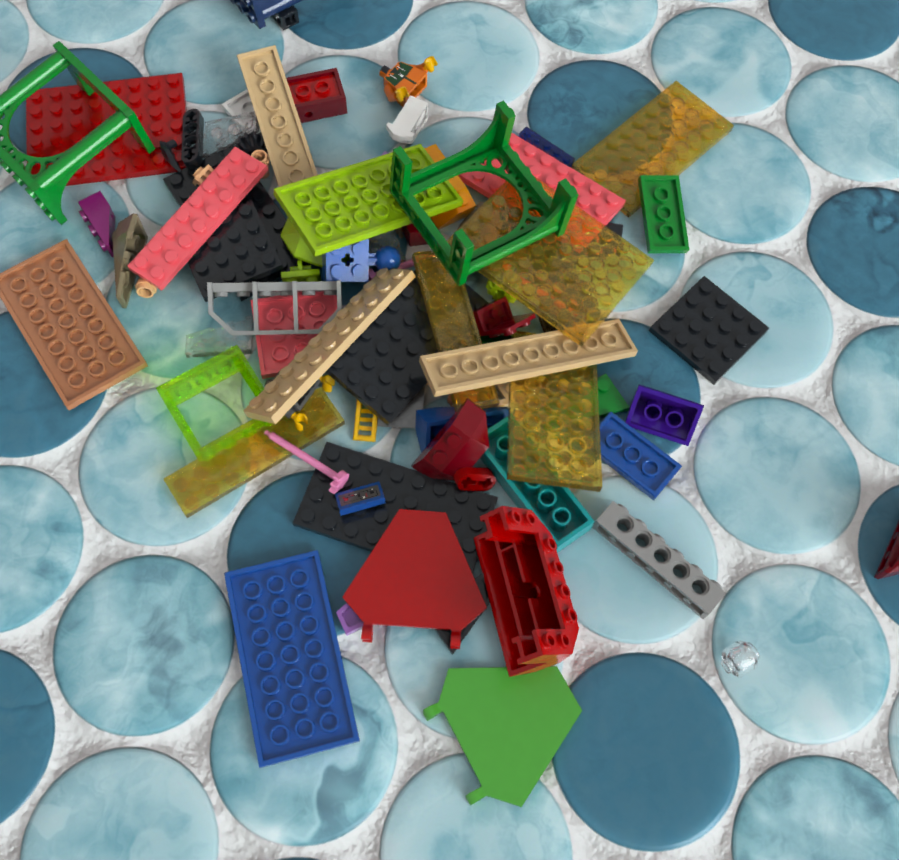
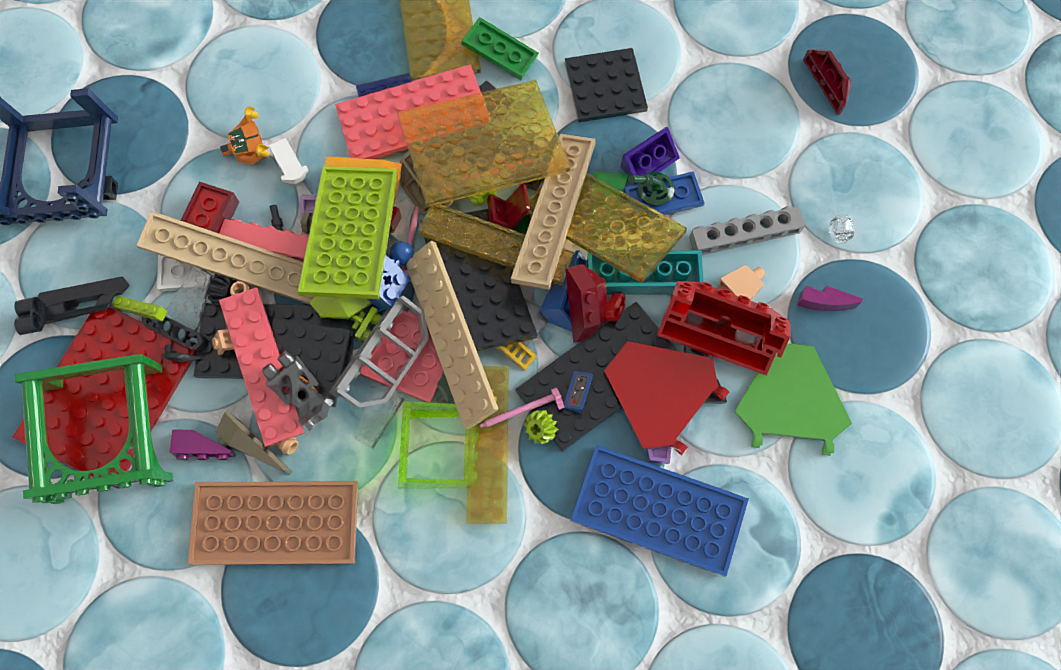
camera: 55 degrees left, 5 degrees up
(160, 50) = (63, 303): none -> black panel
(193, 101) = (140, 308): none -> lime piece
(198, 245) = (314, 405): none -> dark grey hips
(300, 485) = (540, 427): none -> lime gear
(320, 142) = (267, 237): none -> coral brick
(348, 151) = (276, 220): none -> black bar
(493, 144) = (464, 118): green arch -> none
(594, 591) = (743, 281): none -> light nougat torso
(633, 437) = (654, 187): none -> dark green dish
(645, 693) = (828, 299): none -> magenta slope

